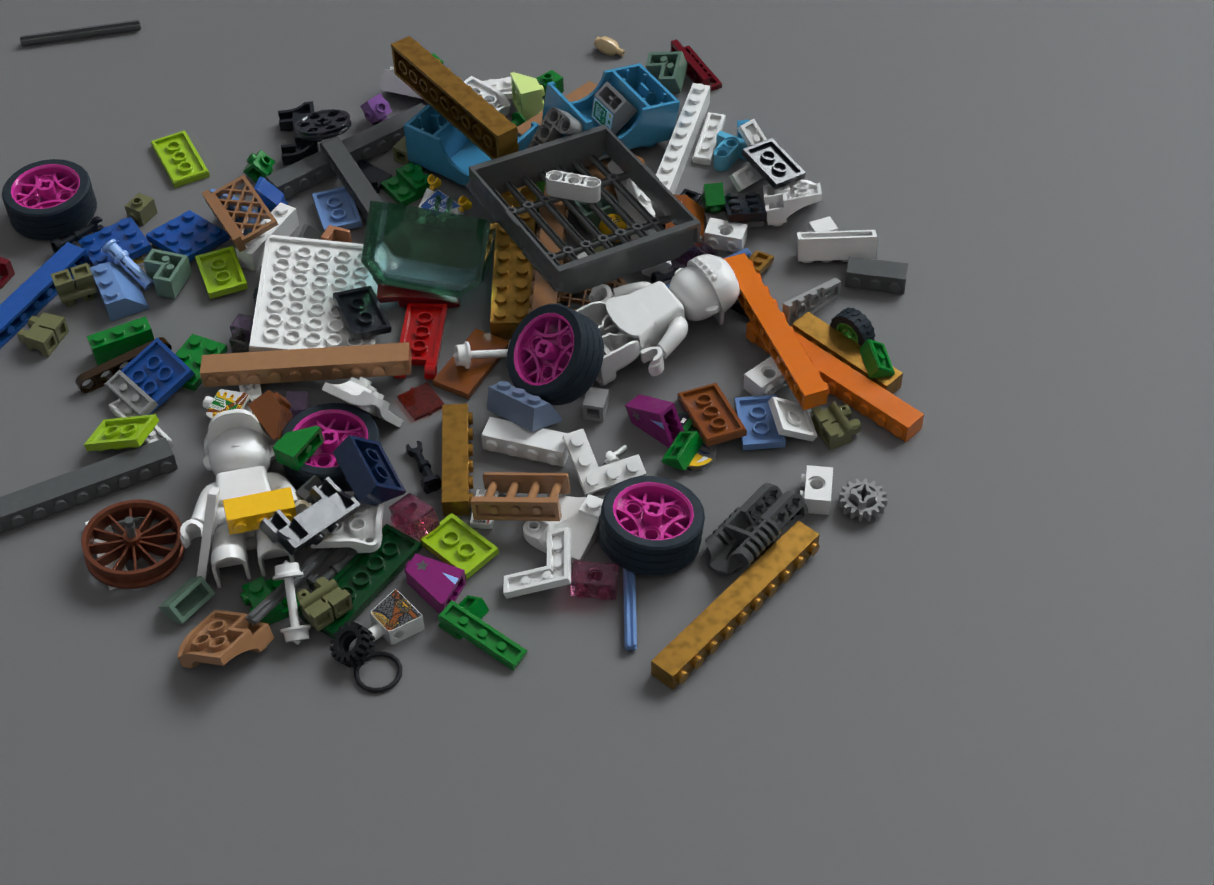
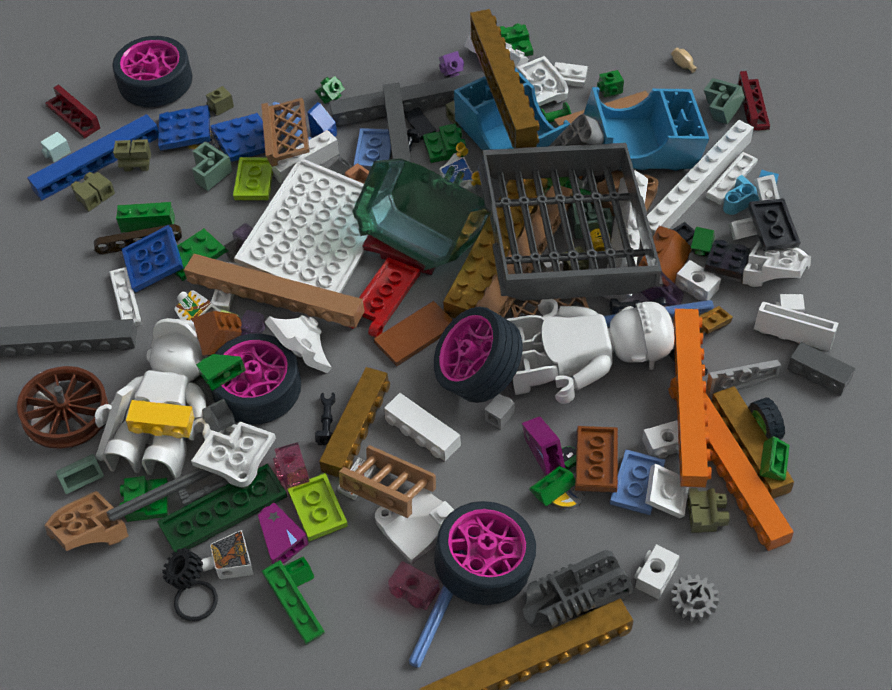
camera: 25 degrees right, 5 degrees up
(76, 235) = (160, 109): black piece -> none
(118, 290) = (166, 169): medium blue slope -> none
(121, 433) = (102, 302): lime plate -> none
(122, 258) = (179, 143): light blue pin -> none
(131, 394) = (128, 269): light grey tile -> none
(180, 159) = (274, 63): lime tile -> none
(287, 572) = (146, 538): white piece -> none
(302, 148) = (382, 70): black bracket -> none
(315, 522) = (196, 446): bracket -> none
(323, 124) = (394, 68): black wedge -> none
(324, 603) = (169, 519): olive hips -> none
(362, 312) = (342, 255): black plate -> none
(368, 471) = (265, 413): dark blue slope -> none
(420, 401) = (356, 354): clear red piece -> none
(463, 354) = (406, 325): white piece -> none
(521, 407) = (428, 394): sand blue slope -> none
(527, 95) = (583, 84): yellowish green slope -> none
(554, 575) = (378, 568): white plate -> none
(573, 186) = (569, 195): white beam -> none
(589, 474) = (461, 482): white plate -> none
(611, 108) = (646, 126): light grey slope -> none
(613, 456) = (488, 468): white hand -> none

